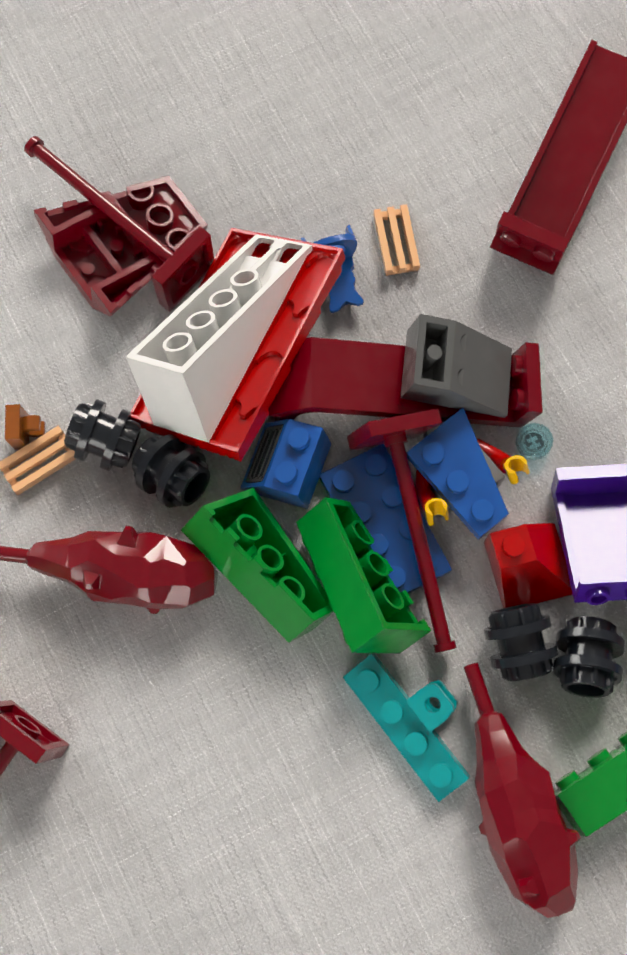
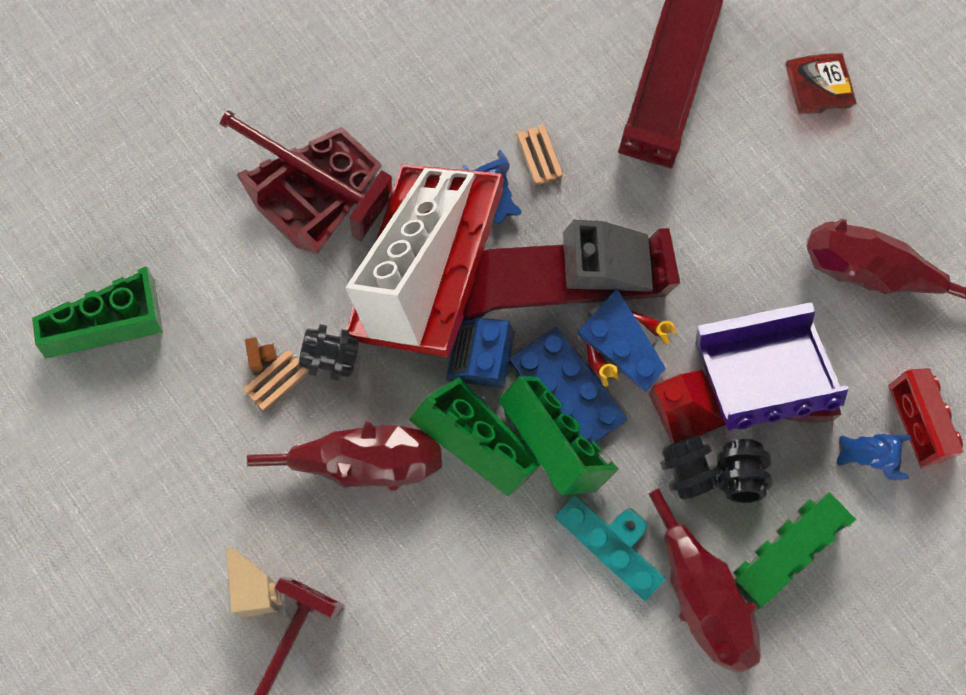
camera: 15 degrees left, 0 degrees up
(170, 471) = (394, 375): black piece -> none
(394, 433) = (565, 318): dark red tile -> none
(534, 441) = (676, 306): clear light blue tile -> none

